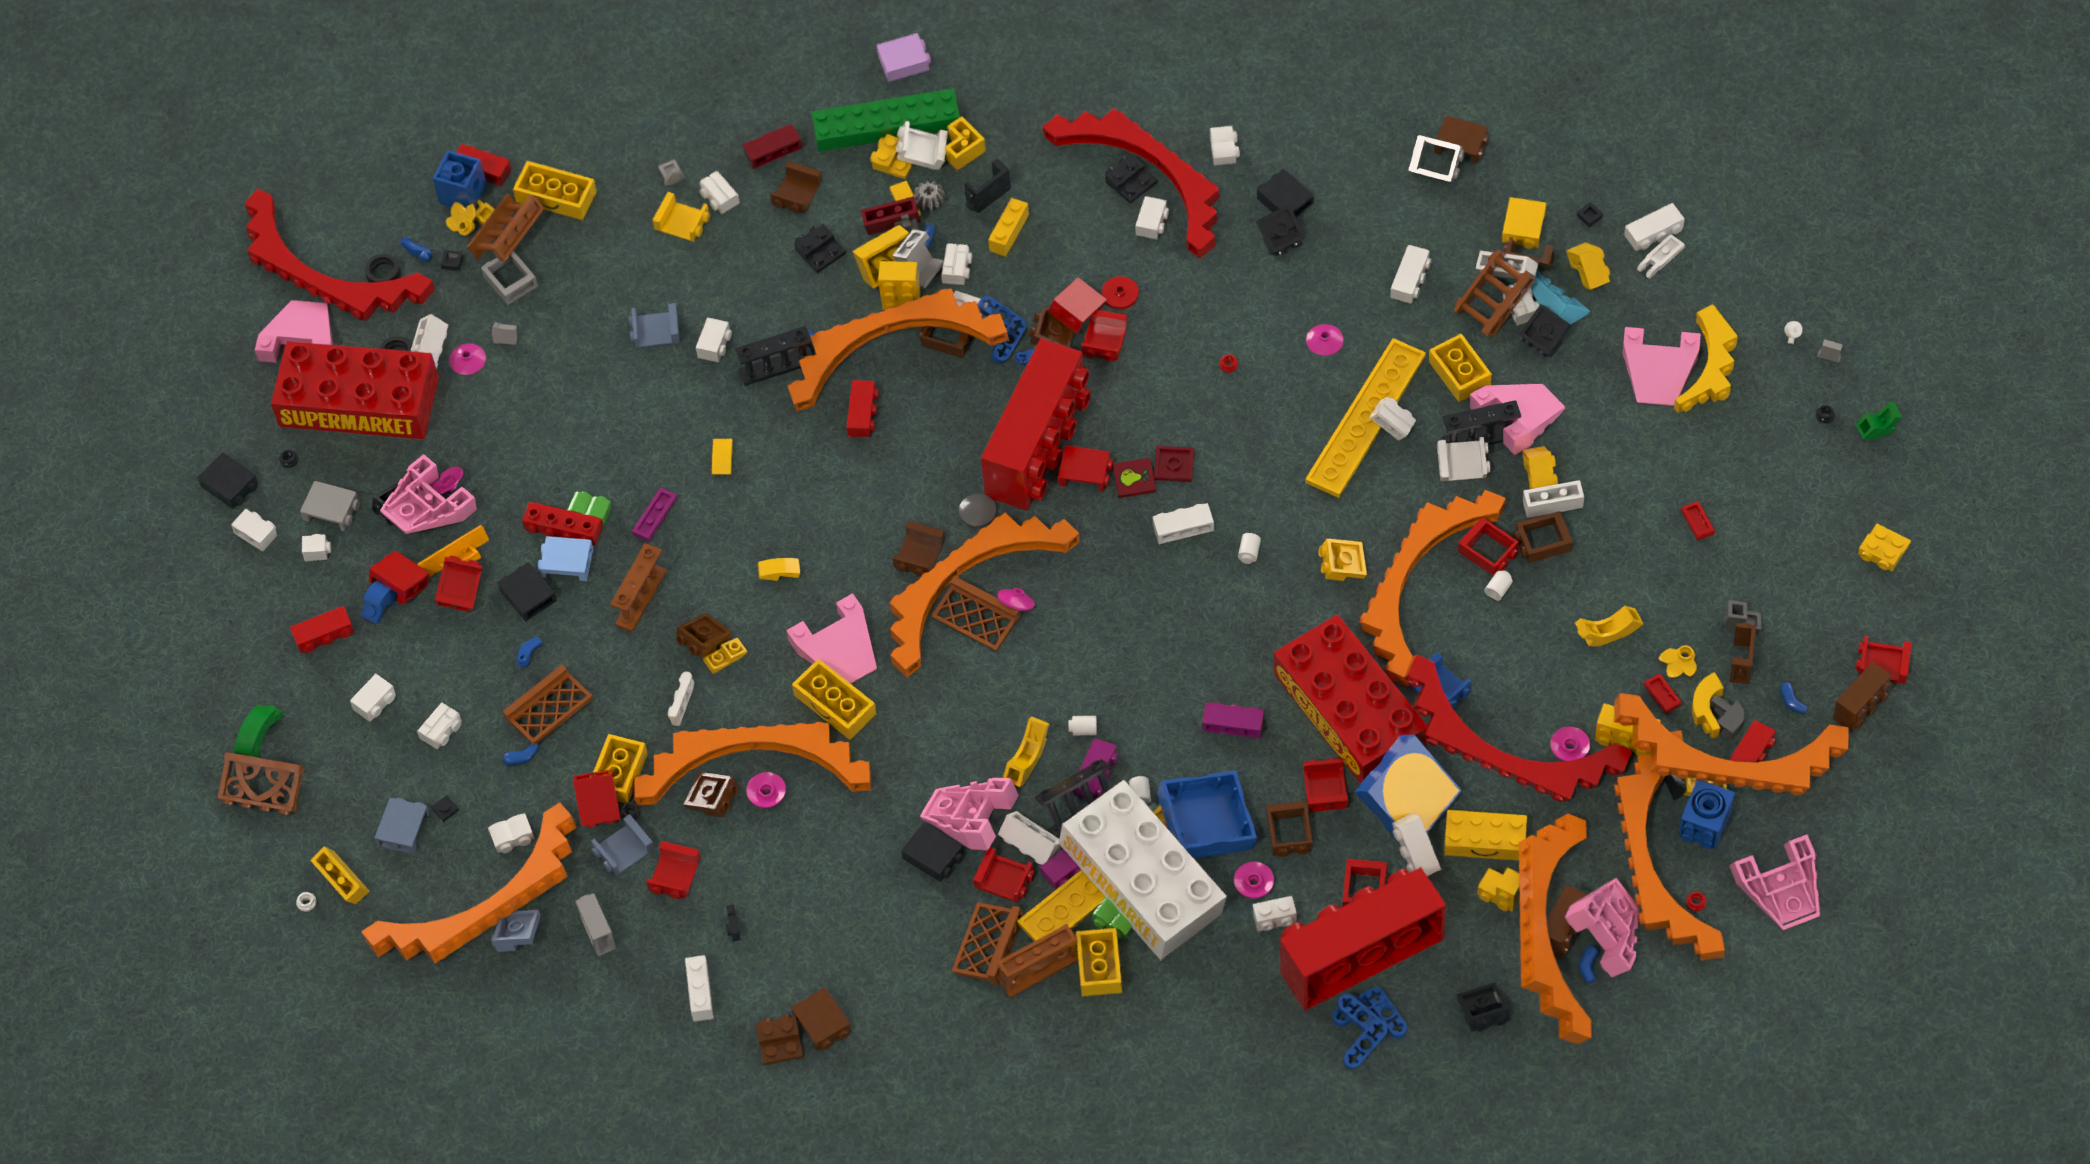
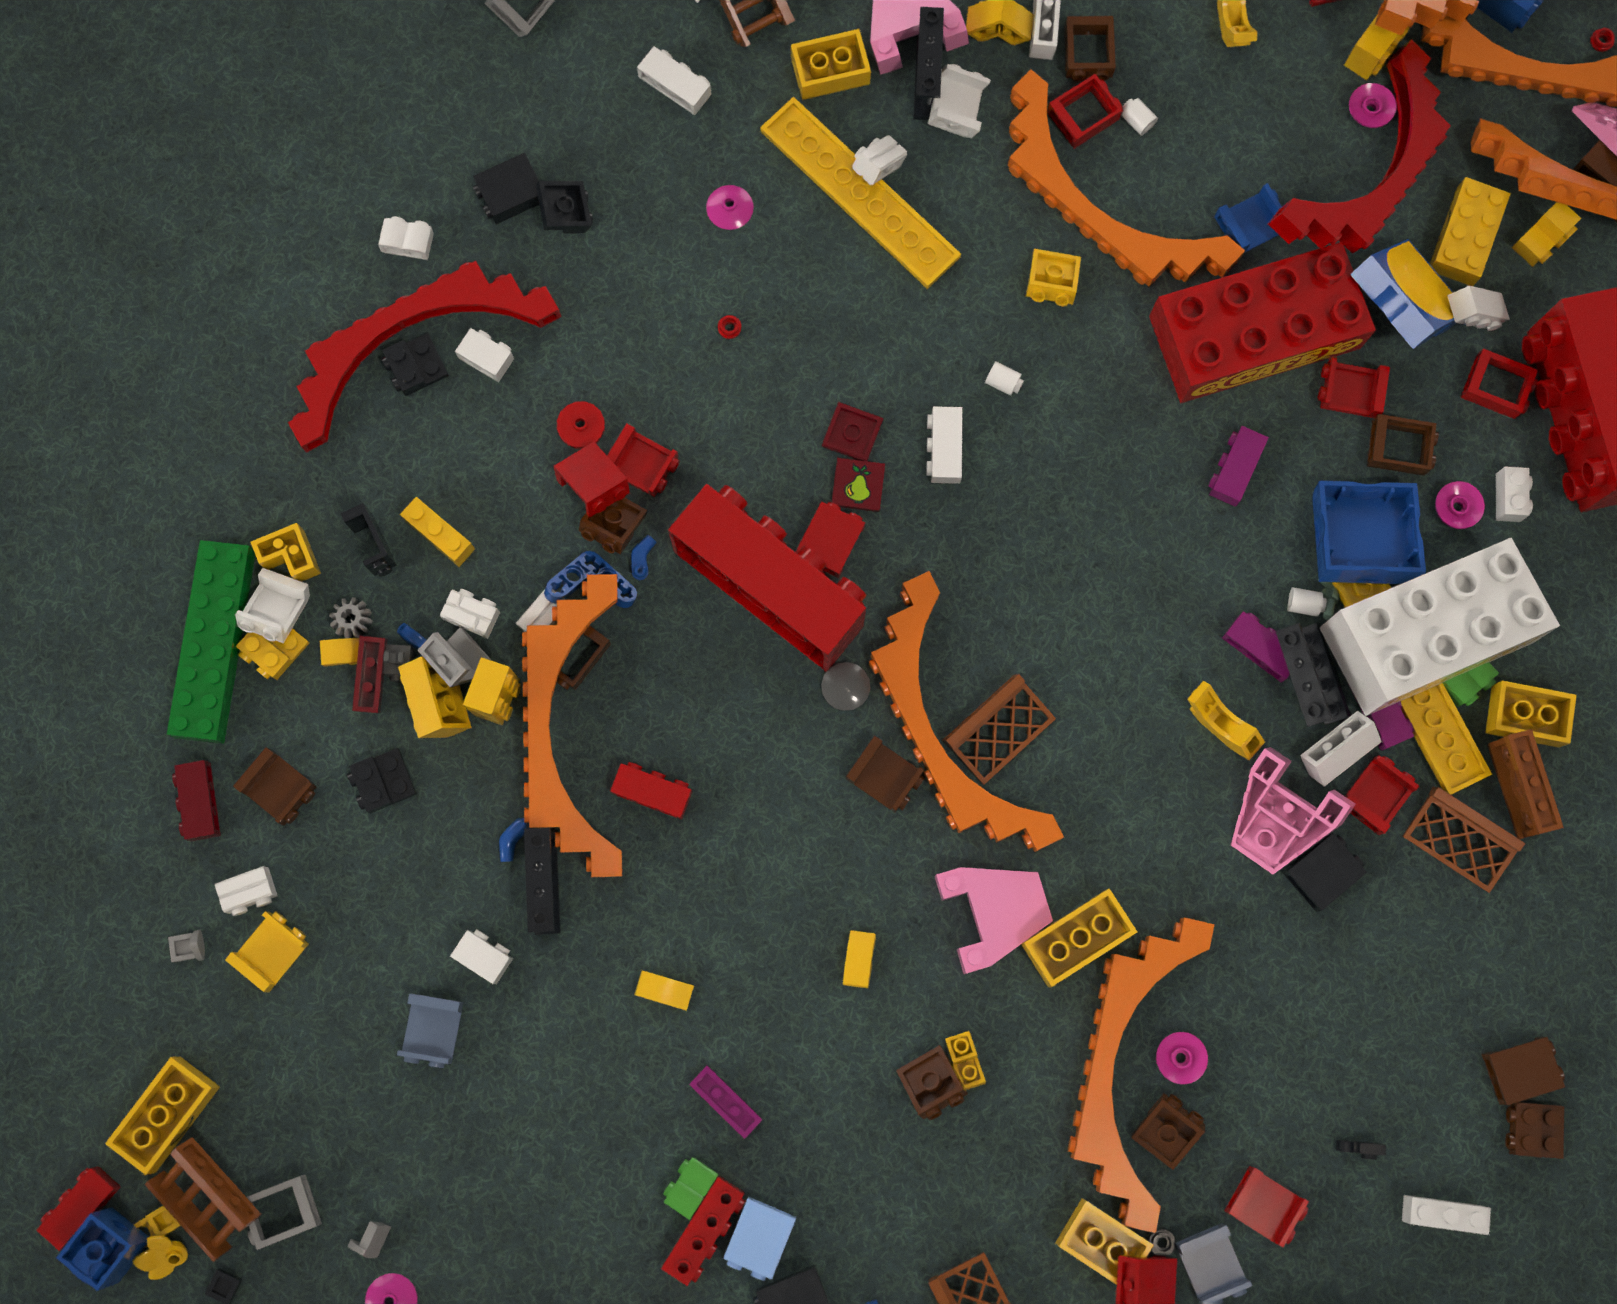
camera: 80 degrees left, 20 degrees up
(638, 587) = (846, 1153): dark orange fence -> none
(681, 698) = (1014, 1134): white hinge -> none
(903, 57) = (118, 592): lavender brick -> none
(1015, 599) = (997, 674): dark pink dish -> none
(1083, 725) = (1196, 642): white brick -> none

